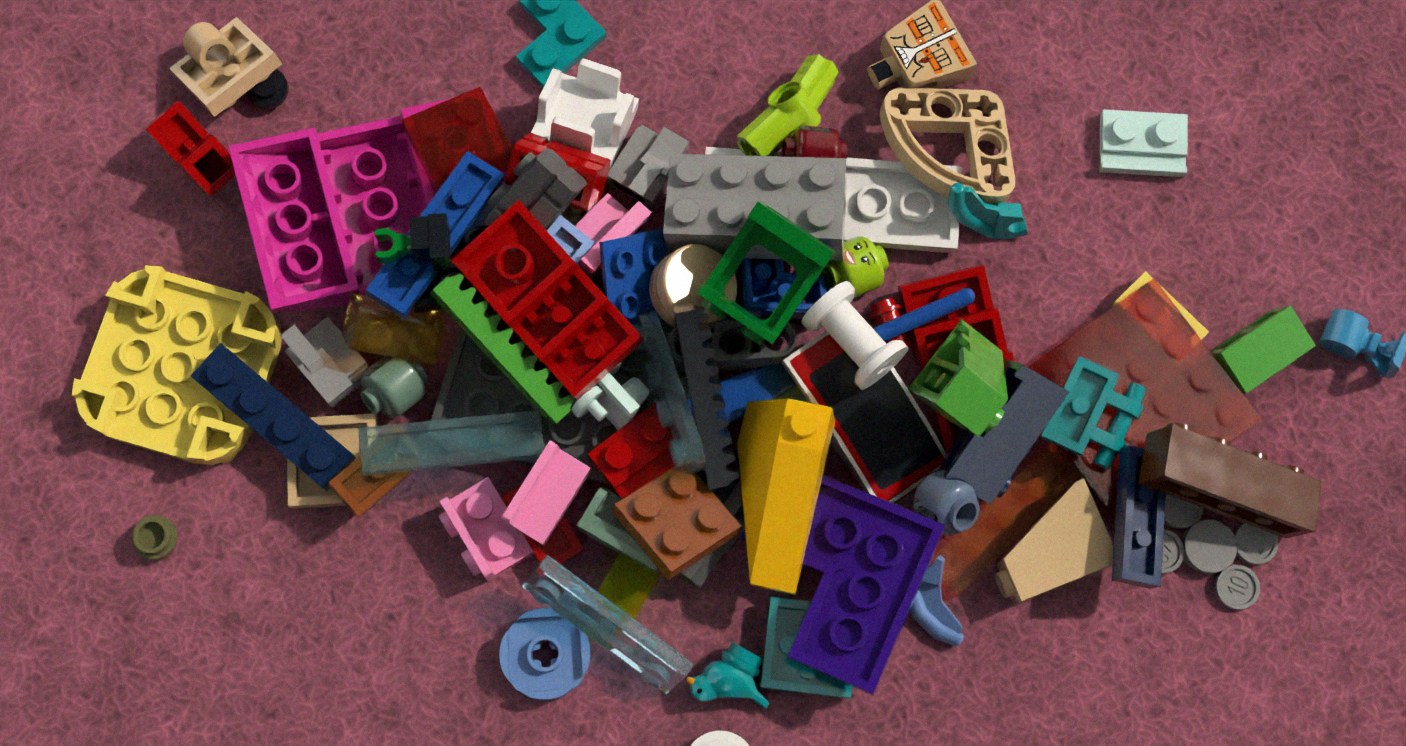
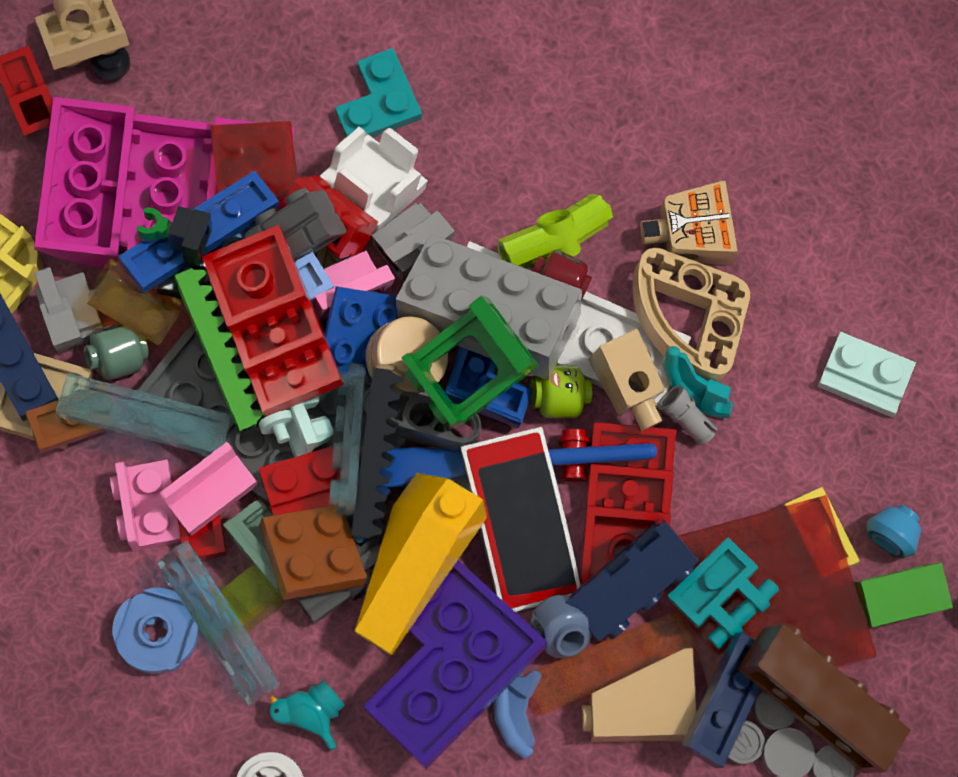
camera: 20 degrees right, 5 degrees down
(782, 673) = (359, 725): teal plate -> none
(854, 334) = (521, 422): white piece -> none
(914, 220) = (628, 361): none -> tan torso
(965, 381) = (614, 518): bright green wedge -> none
(981, 242) = (682, 409): none -> light grey pin
(1231, 289) = (895, 530): none -> dark azure cone

